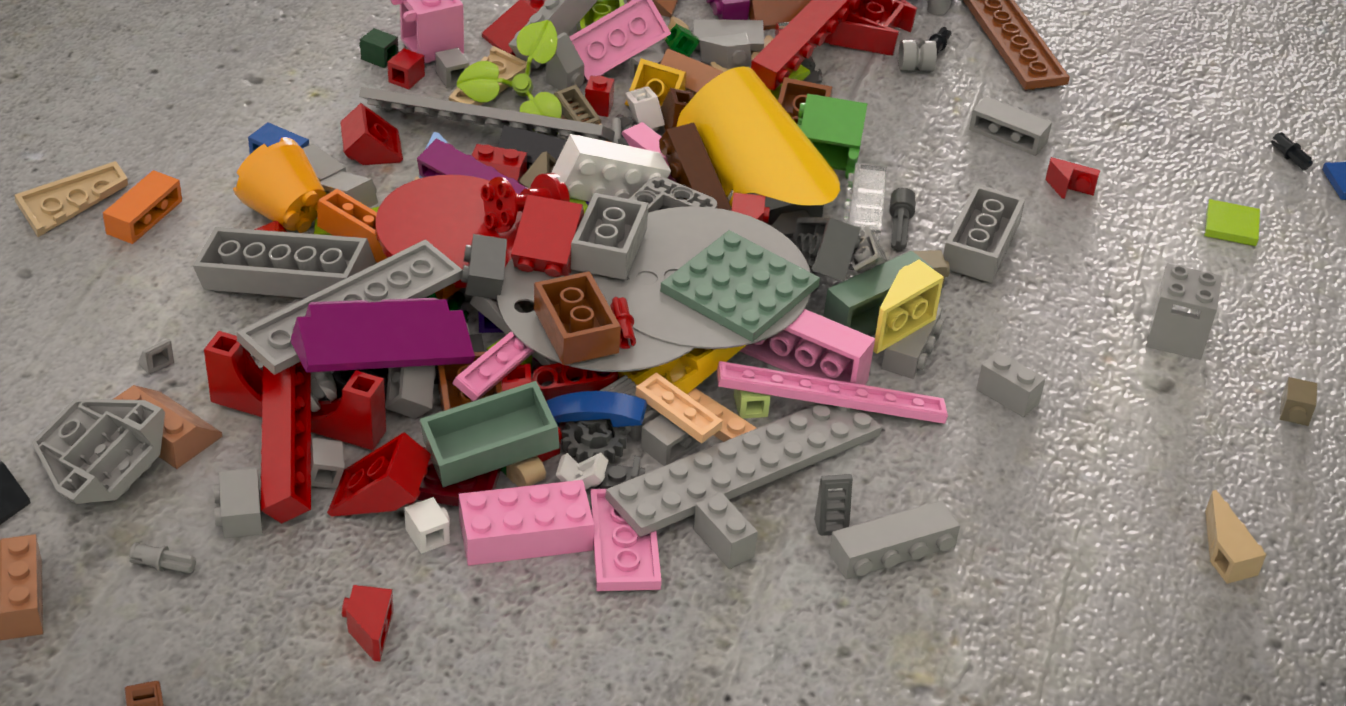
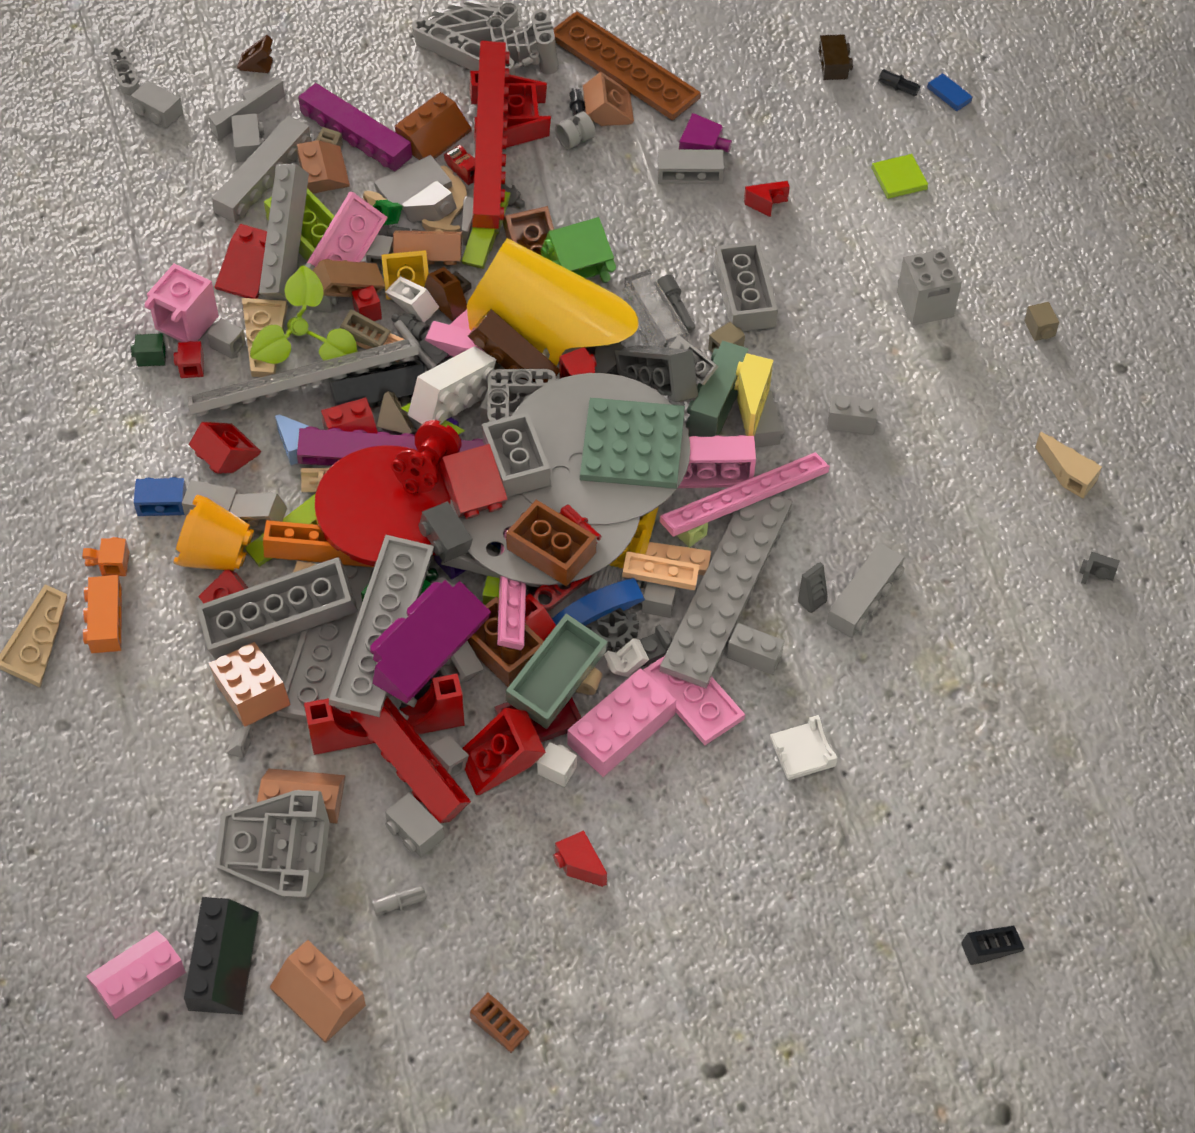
camera: 30 degrees left, 15 degrees up
(193, 170) = (111, 557): none -> orange brick
(201, 309) = (249, 684): none -> nougat brick
(587, 58) = (343, 277): none -> medium nougat brick
(698, 648) = (803, 749): none -> white piece
(969, 49) = (607, 101): none -> nougat slope
(1044, 104) = (703, 135): none -> magenta torso
(1192, 649) = (1100, 566): none -> dark grey bracket
(1236, 105) = (834, 57): none -> dark brown brick

